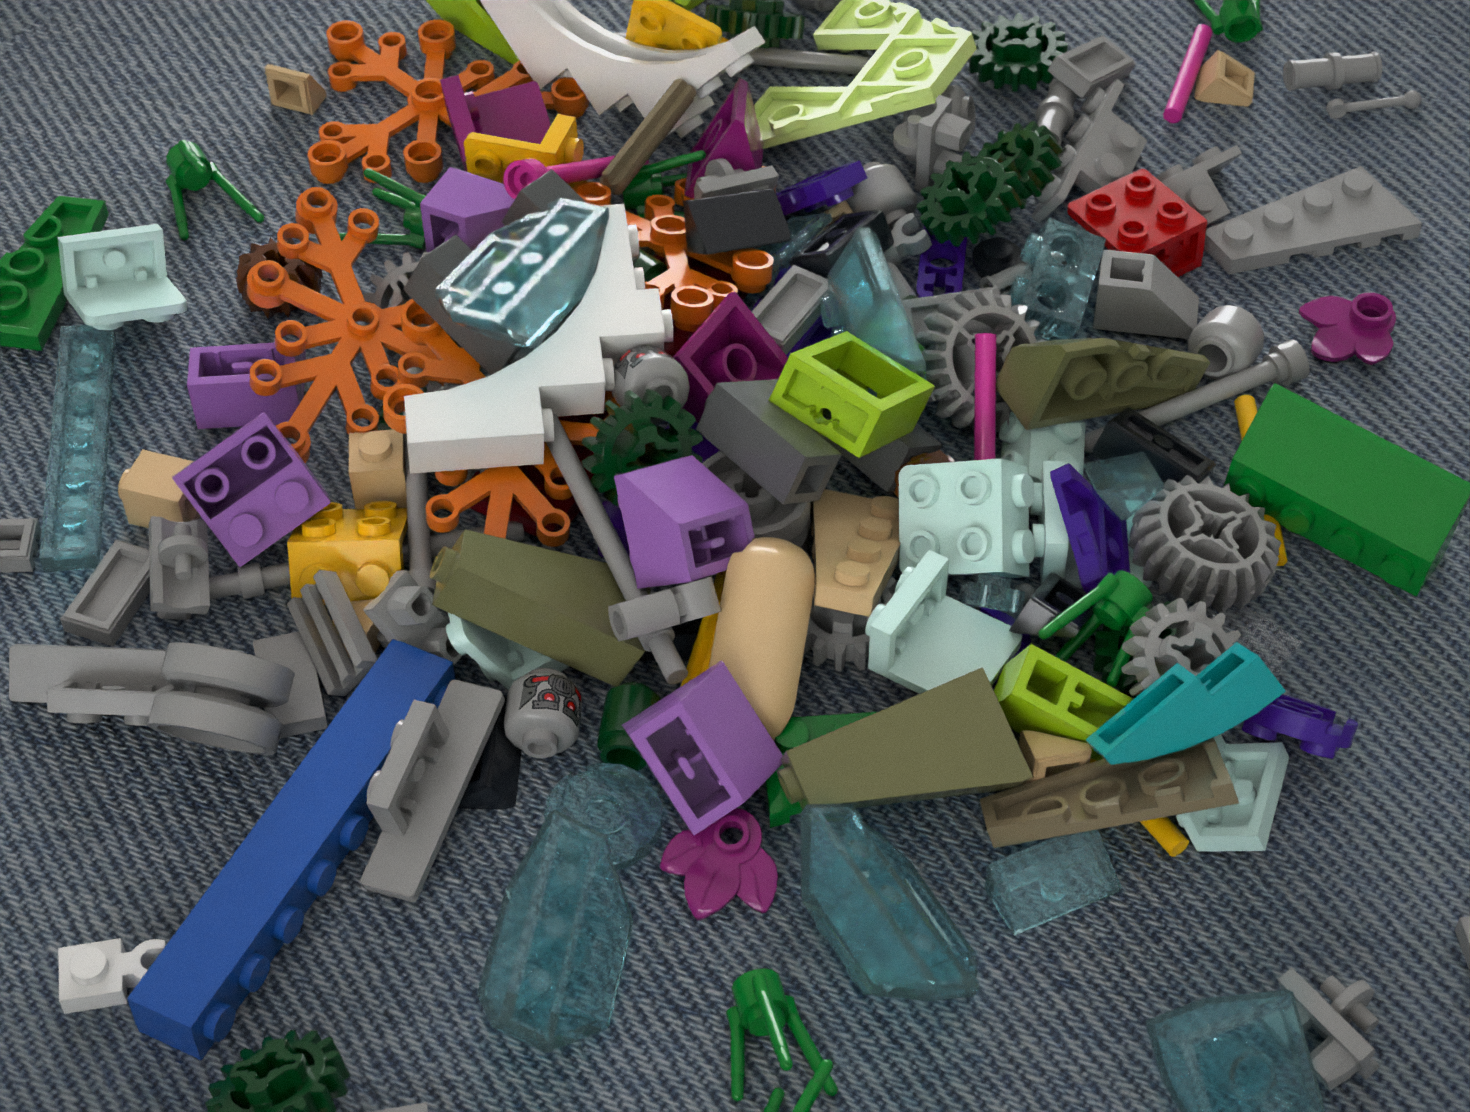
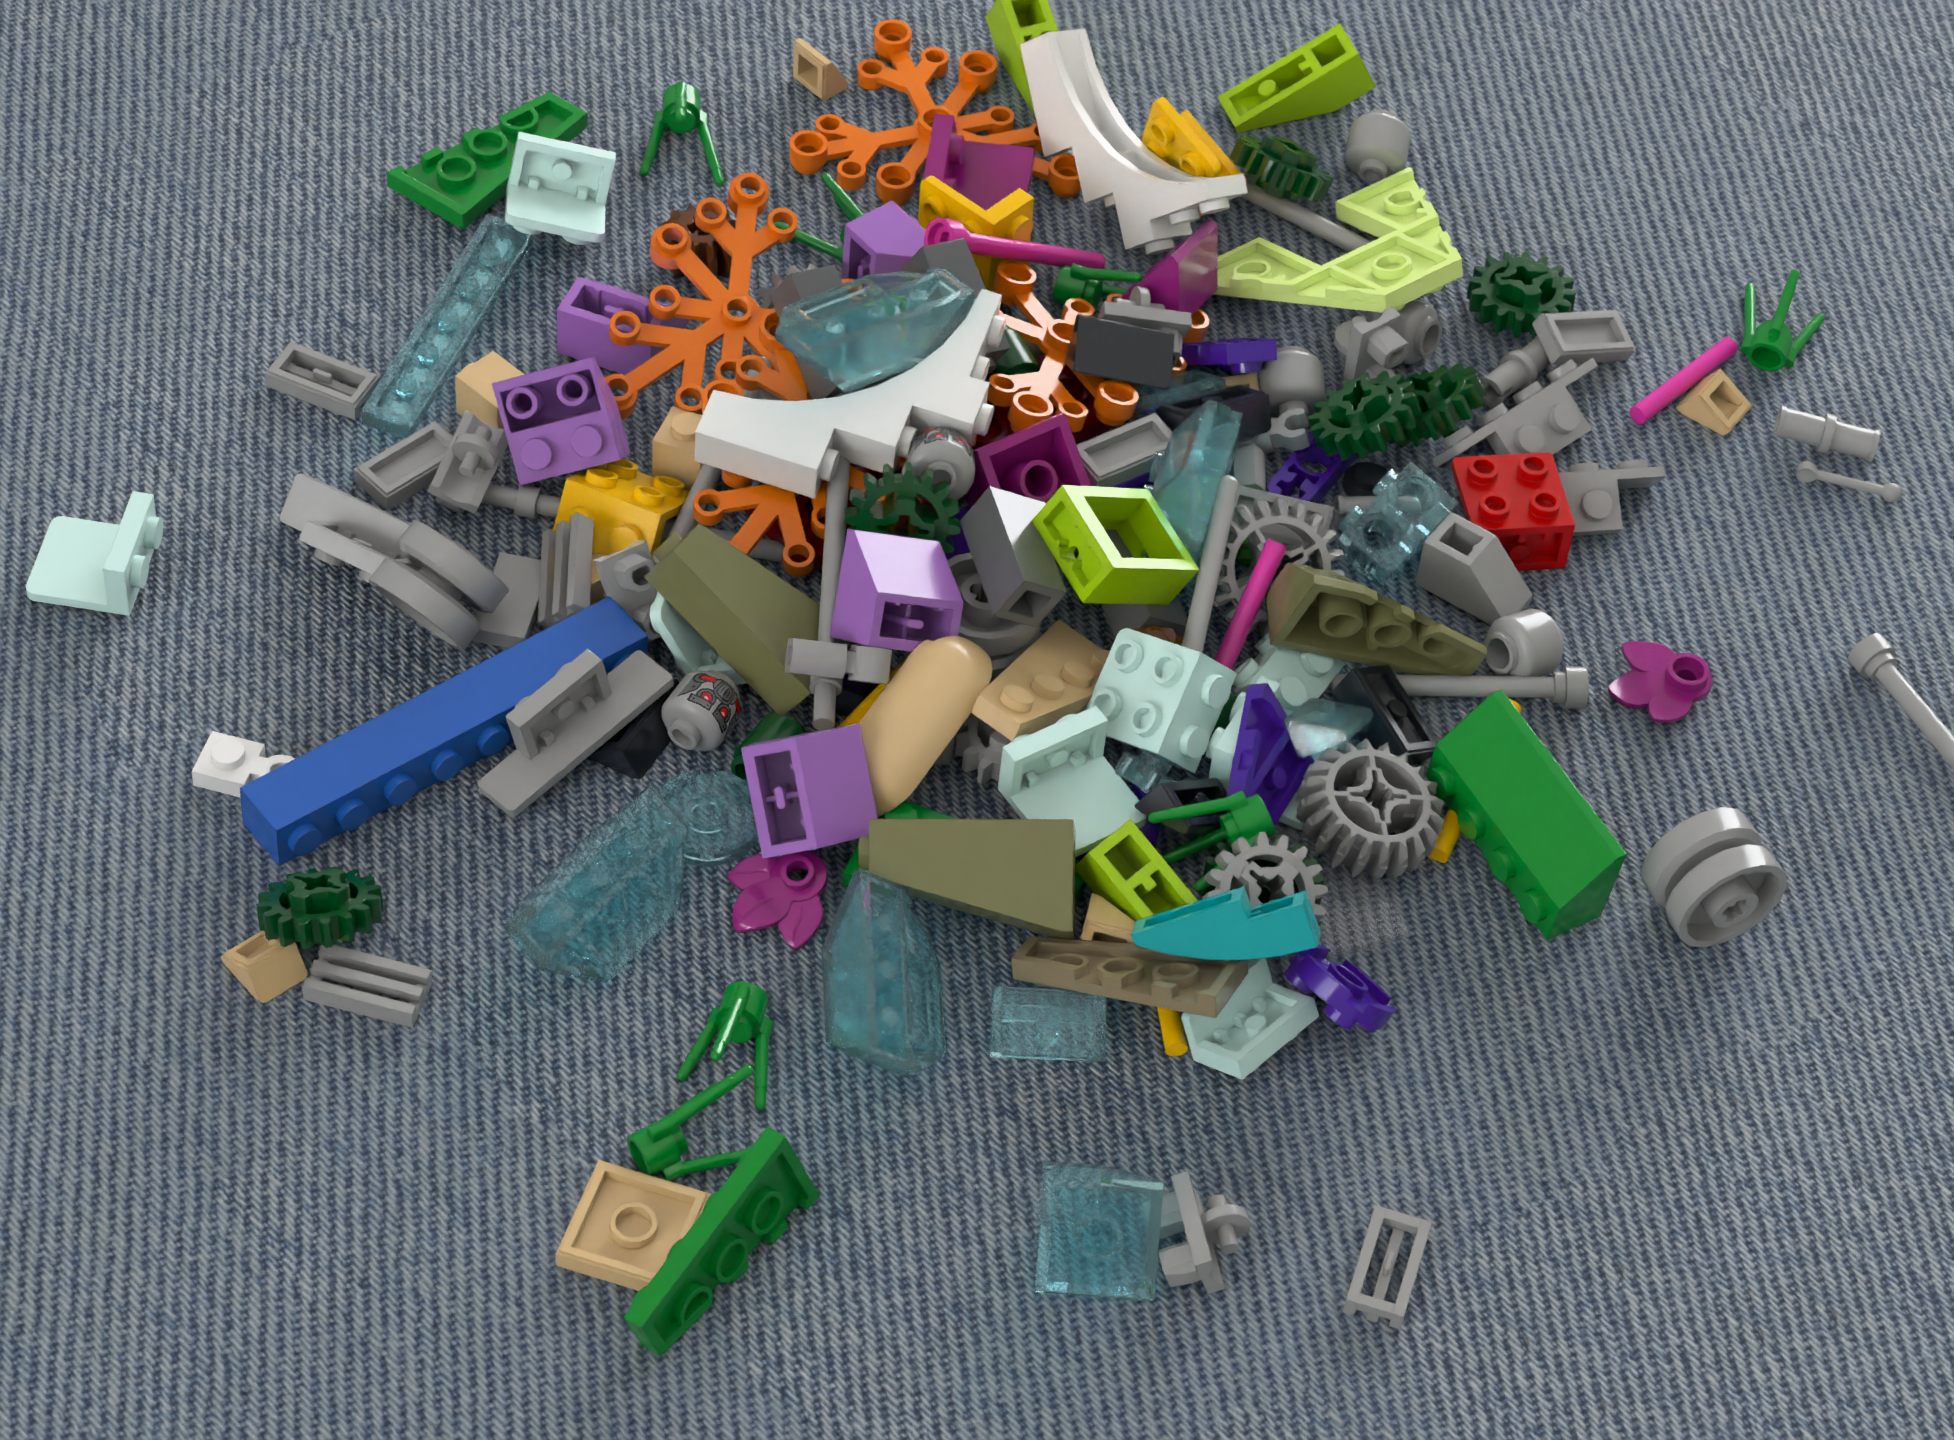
camera: 20 degrees right, 0 degrees up
(648, 136) = (1098, 241): dark tan axle -> none
(940, 377) = (1211, 563): none -> light grey piece
(1311, 223) = (1718, 569): light grey wing -> none

